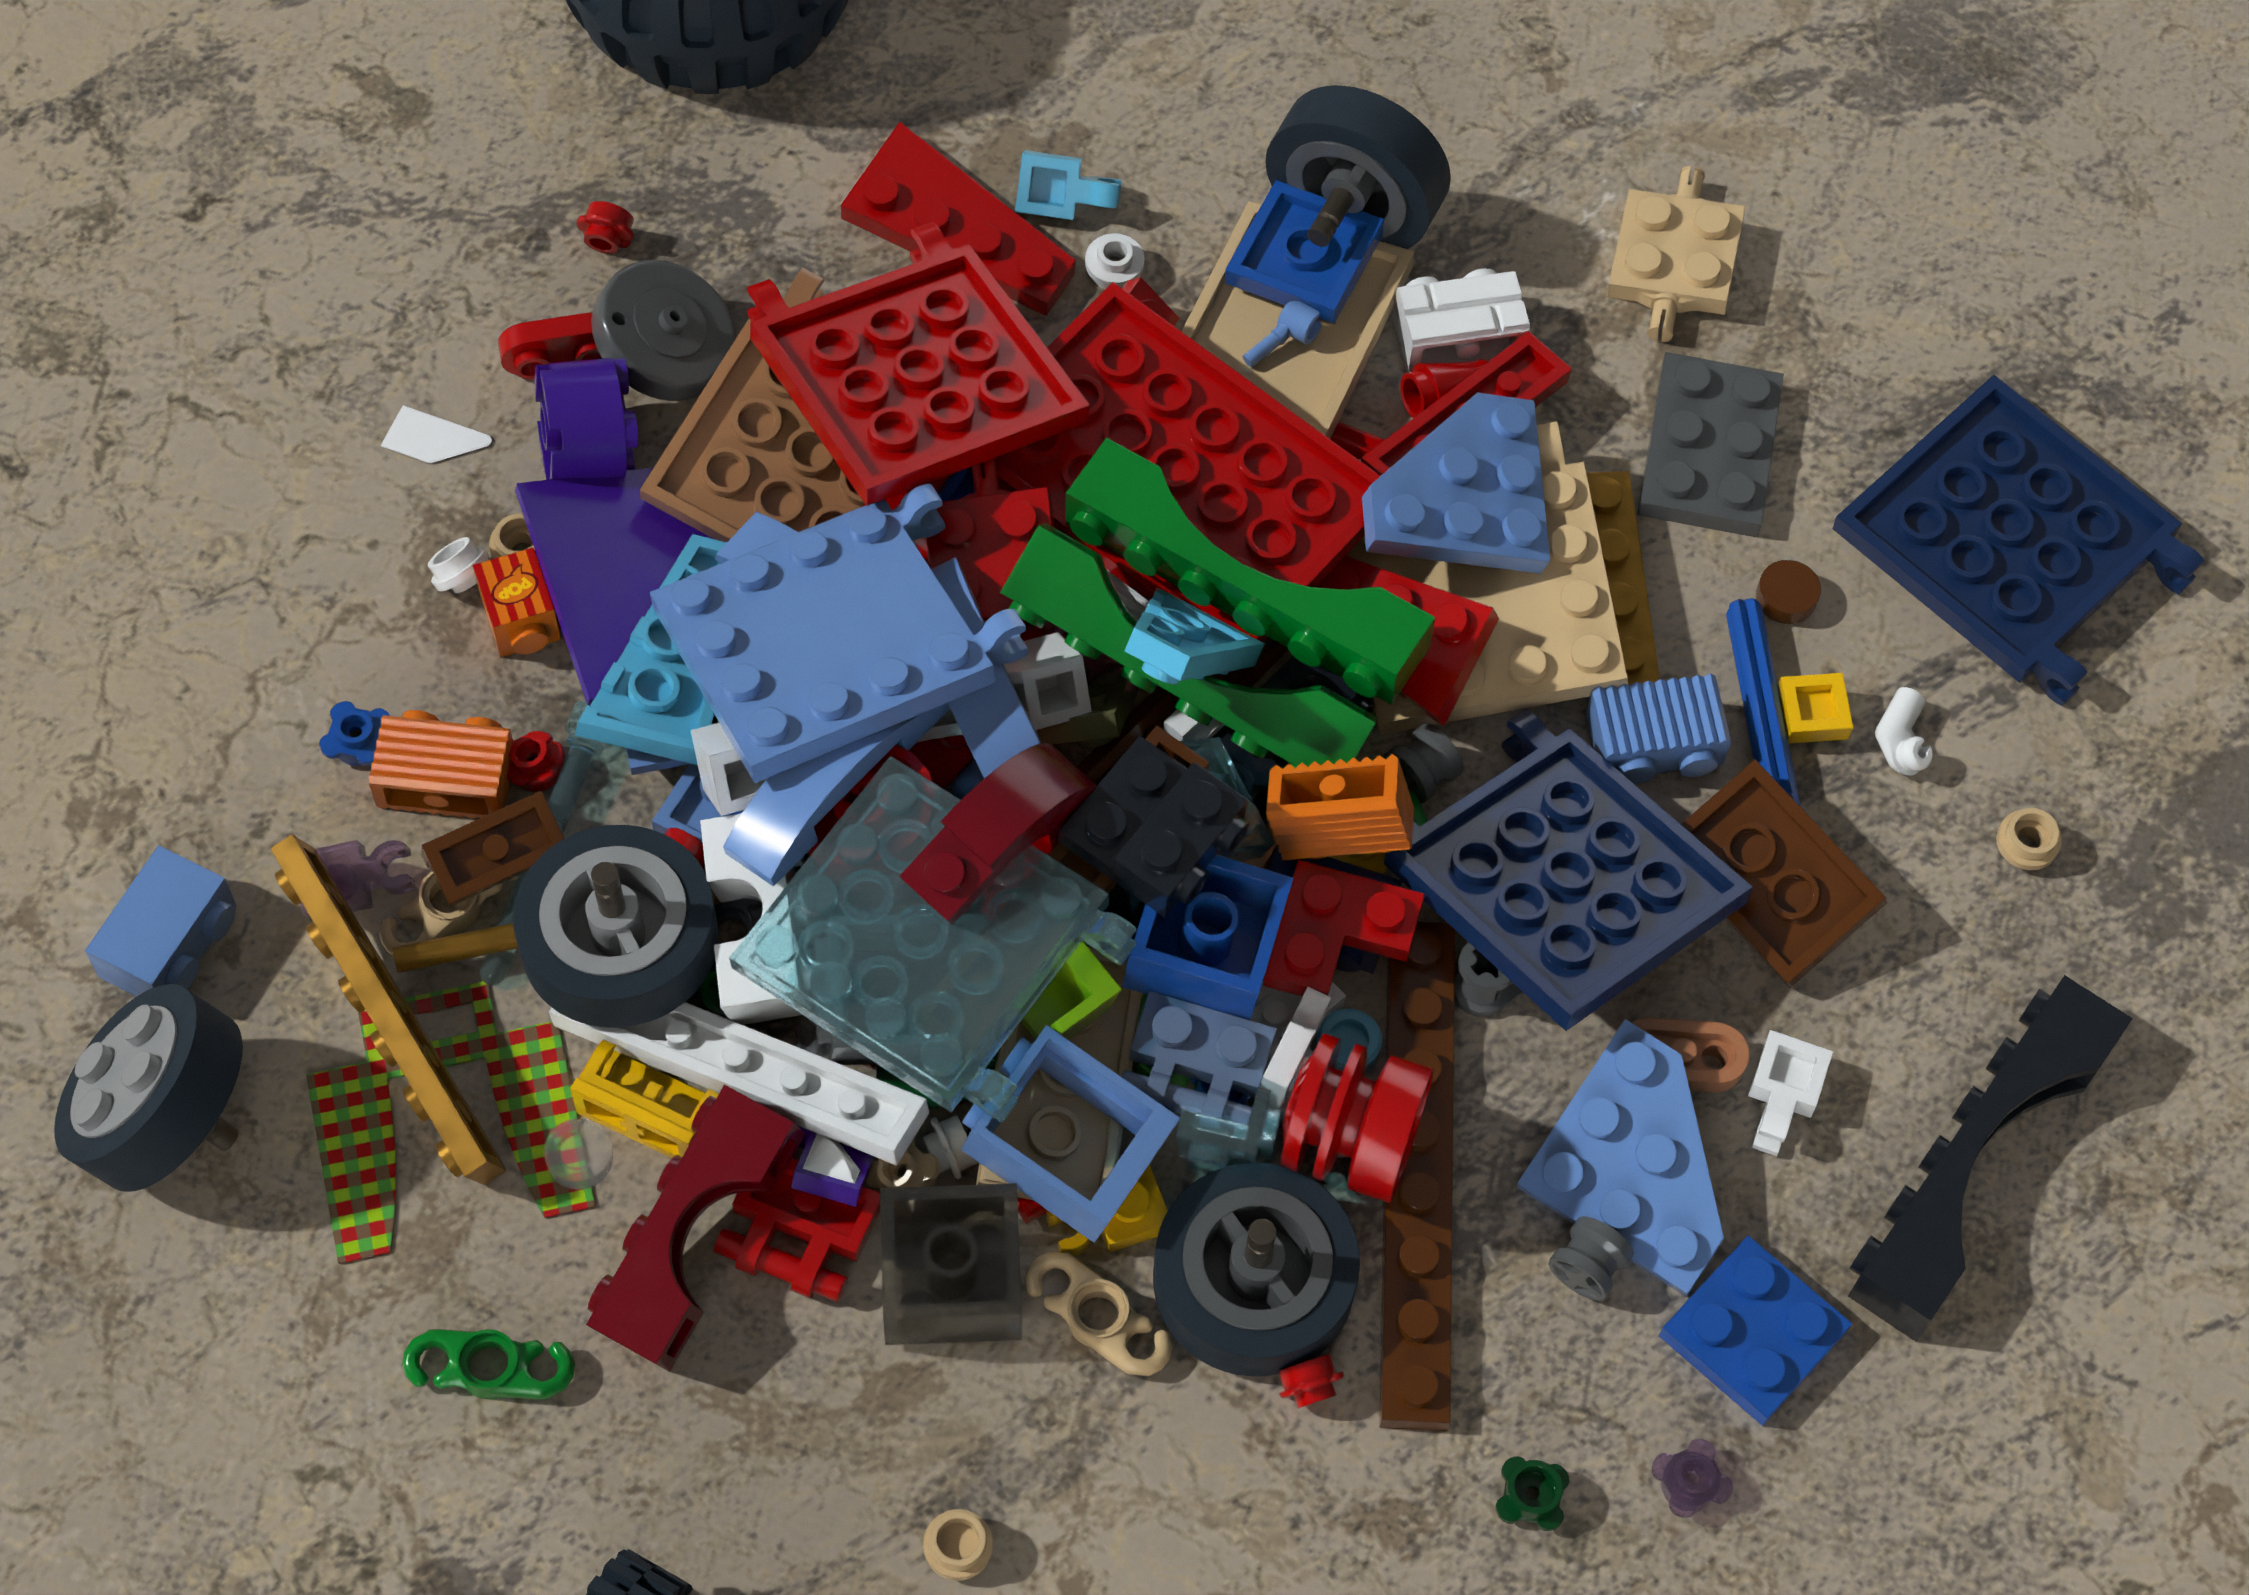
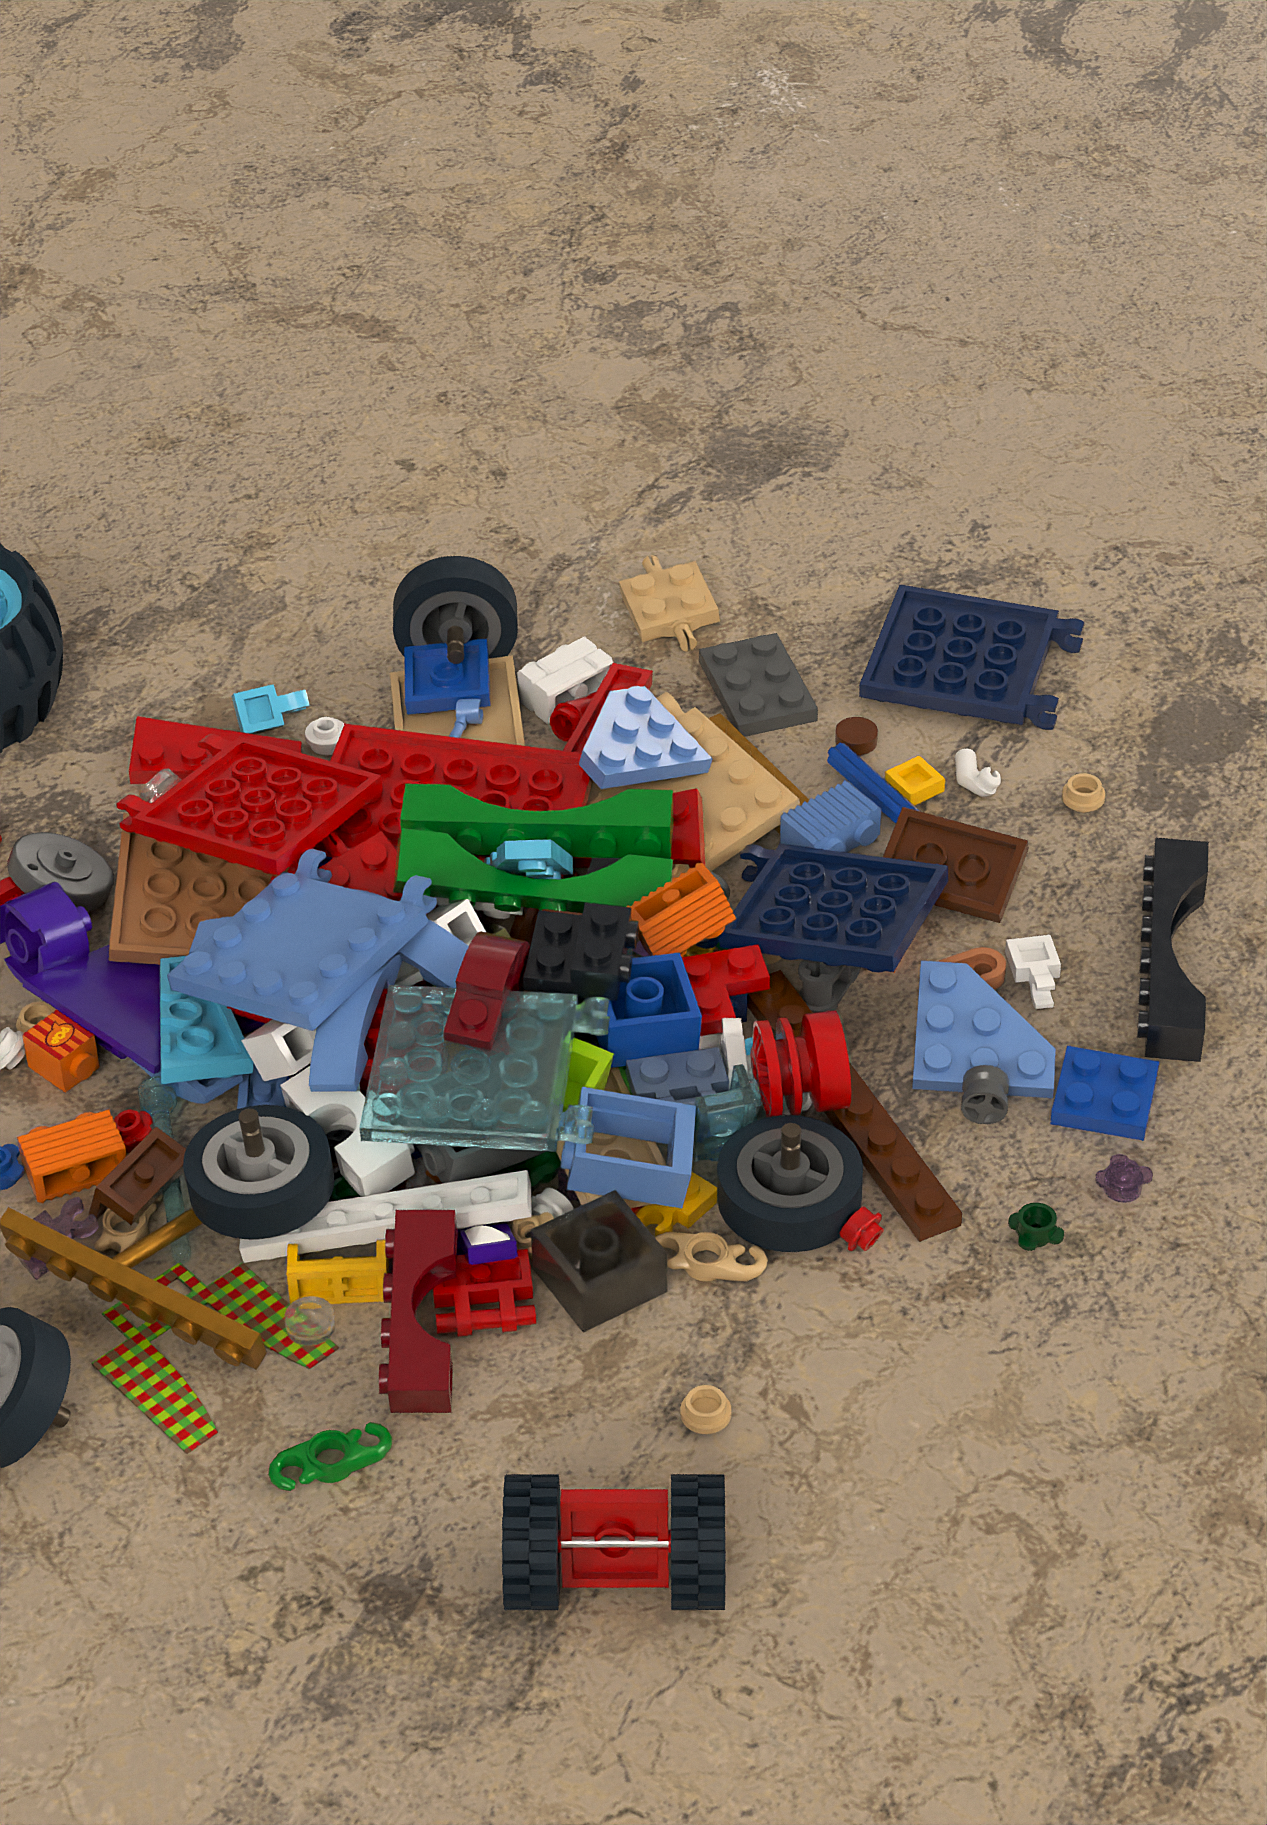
camera: 25 degrees left, 20 degrees down
(815, 284) = (159, 785): none -> clear tile

